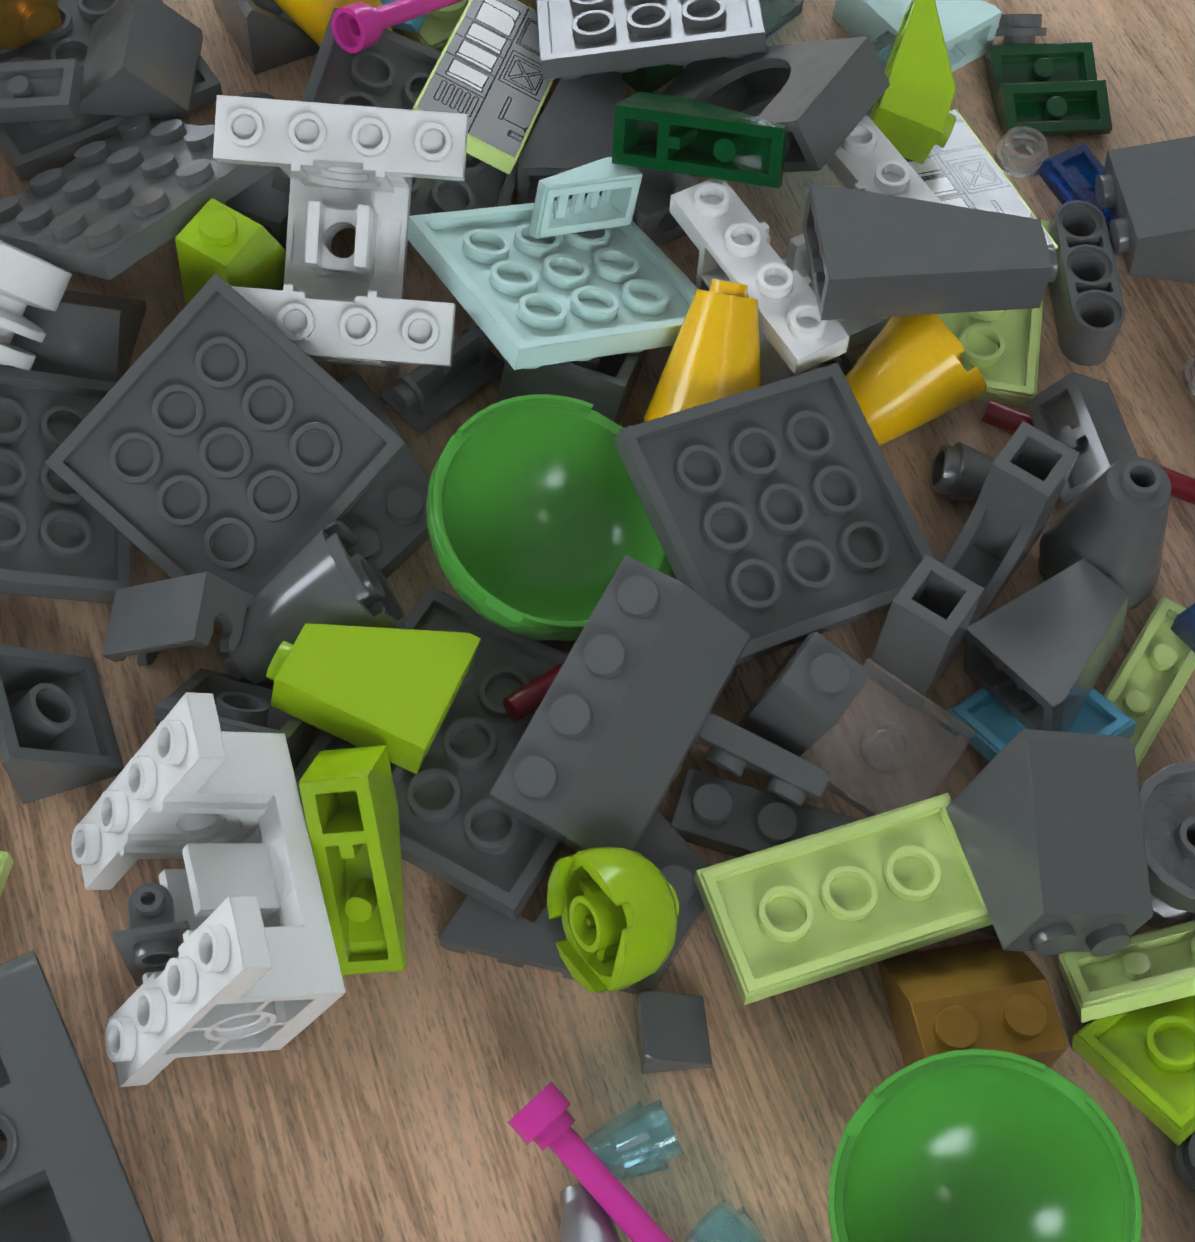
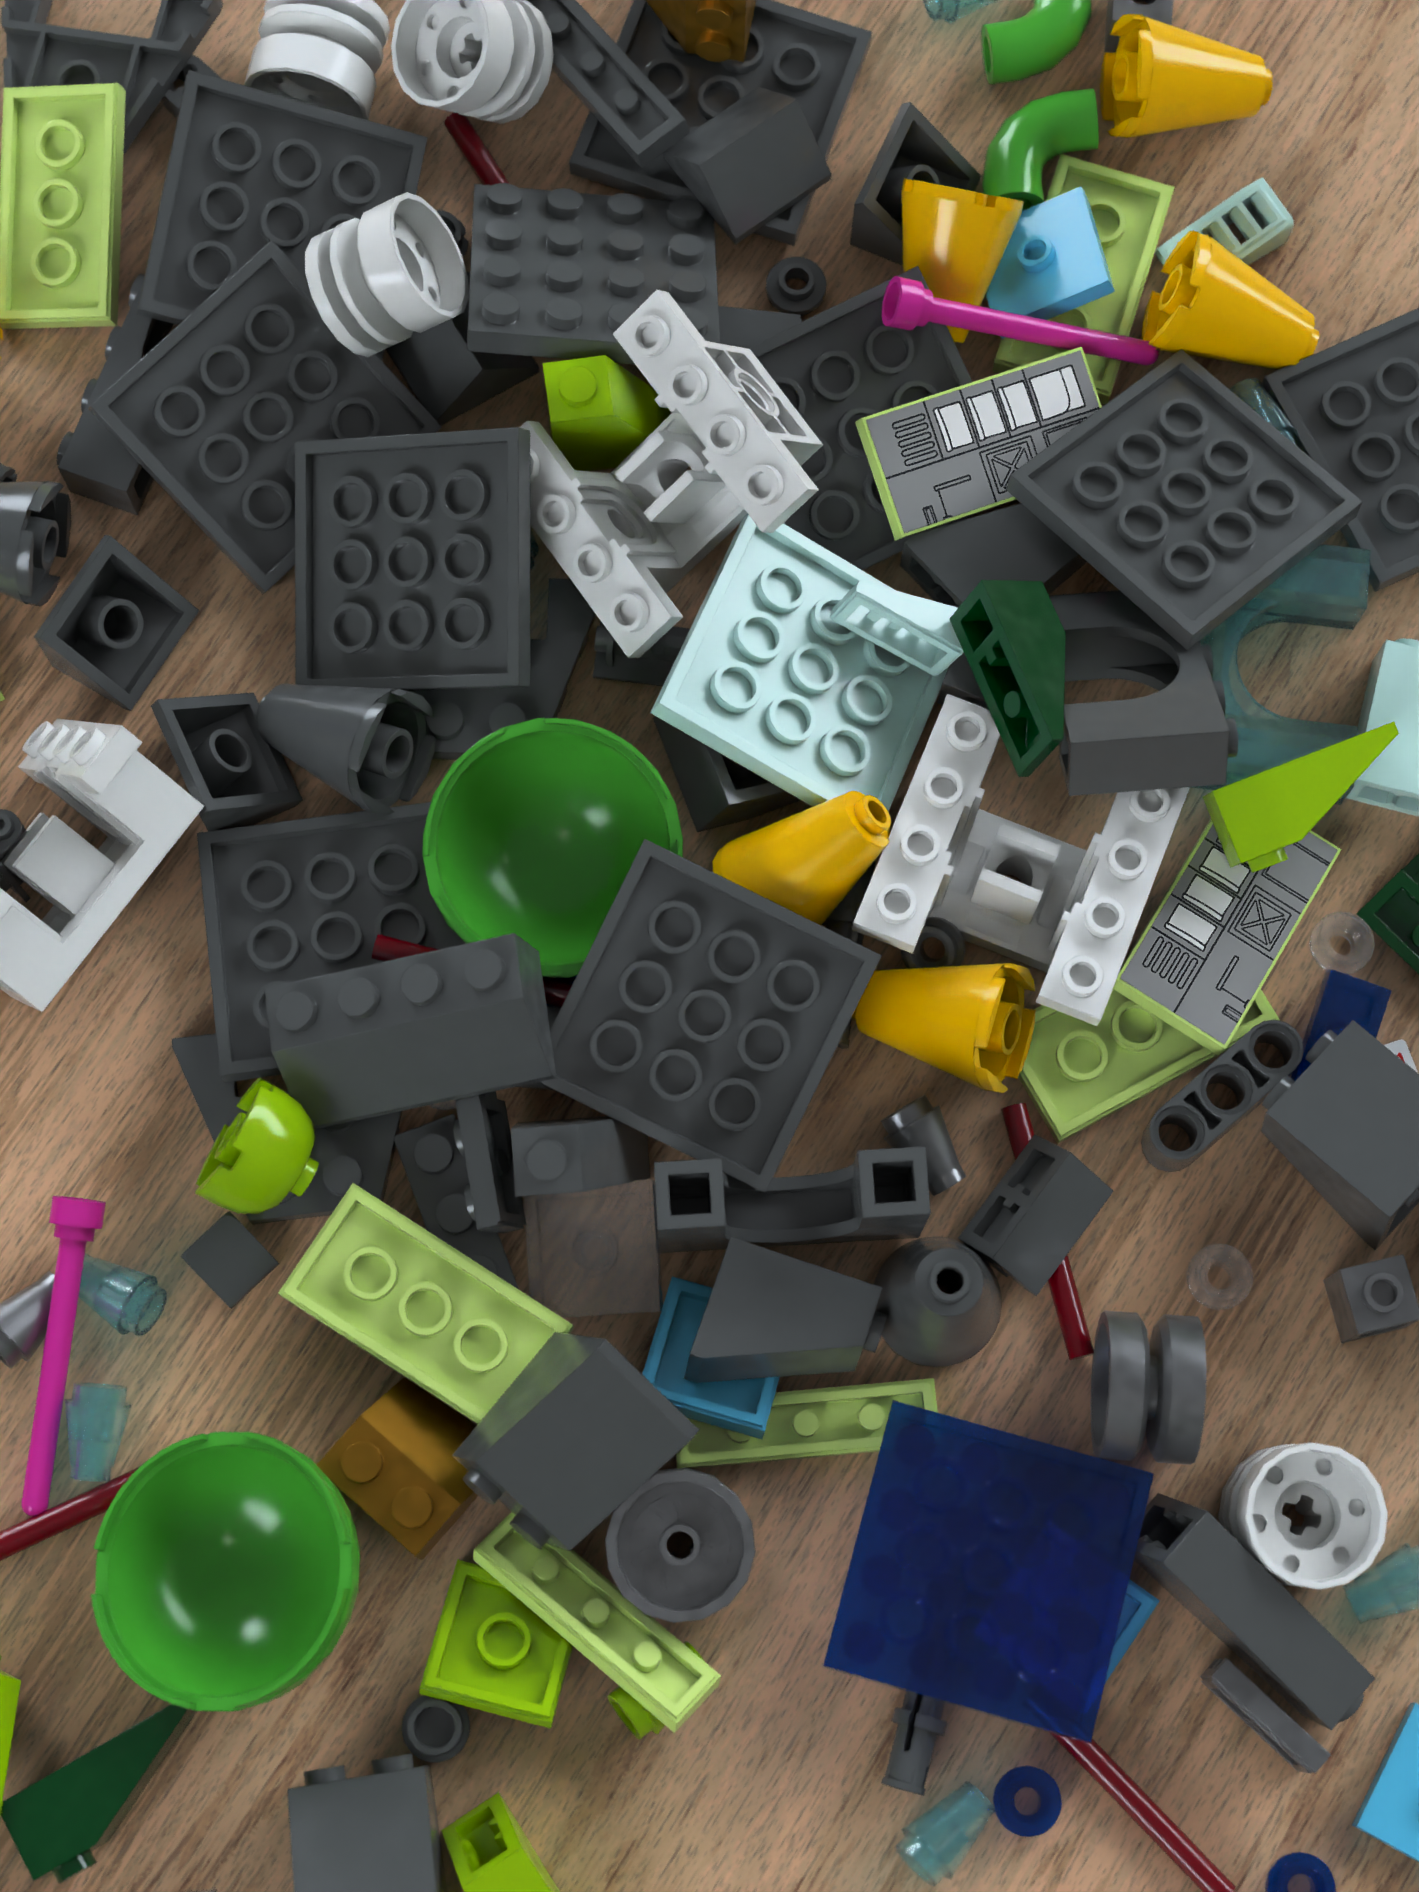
camera: 55 degrees right, 15 degrees up
(174, 616) = (251, 644): dark grey hinge -> none
(358, 855) = (172, 927): lime slope -> none
(373, 684) = (303, 835): lime slope -> none
(920, 256) = (1019, 943): dark grey slope -> none

